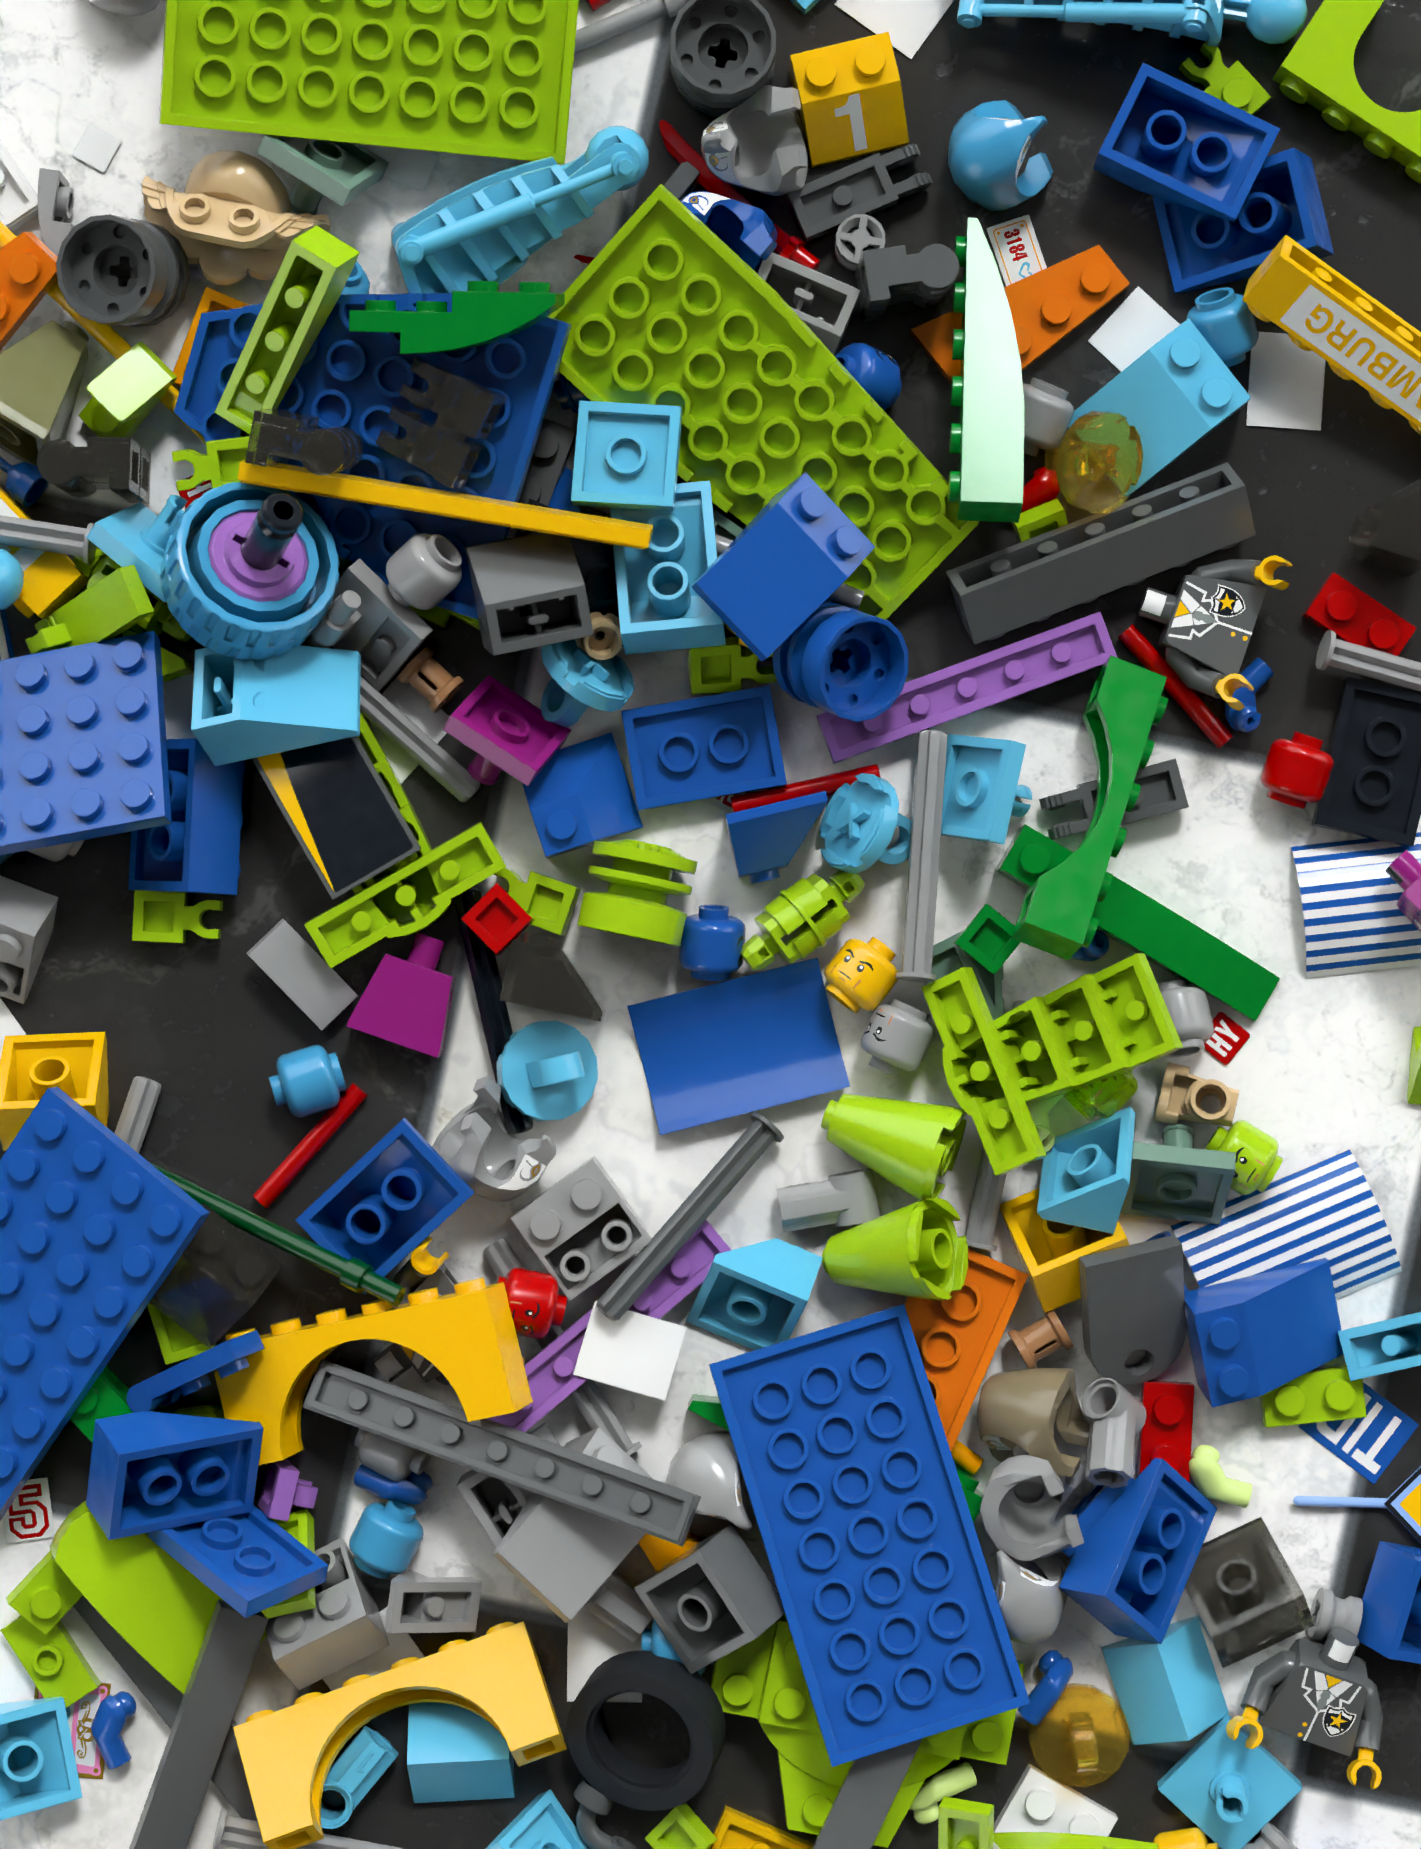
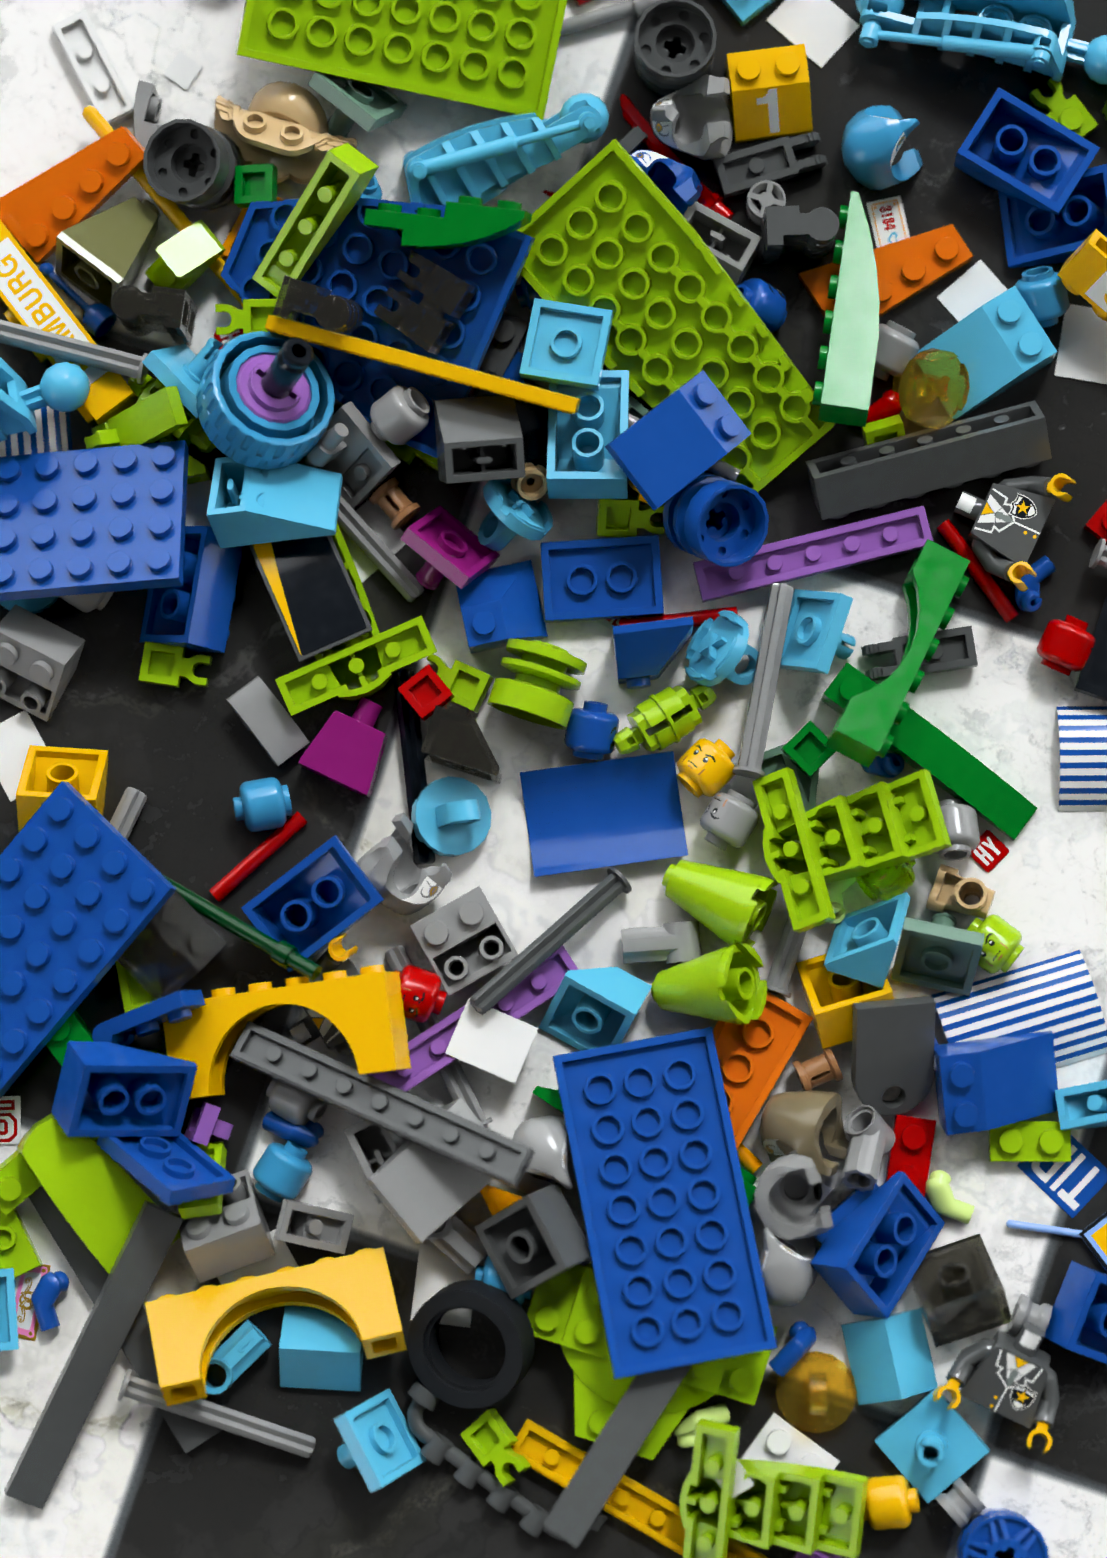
camera: 20 degrees right, 5 degrees down
(205, 288) = (255, 183): none -> green plate

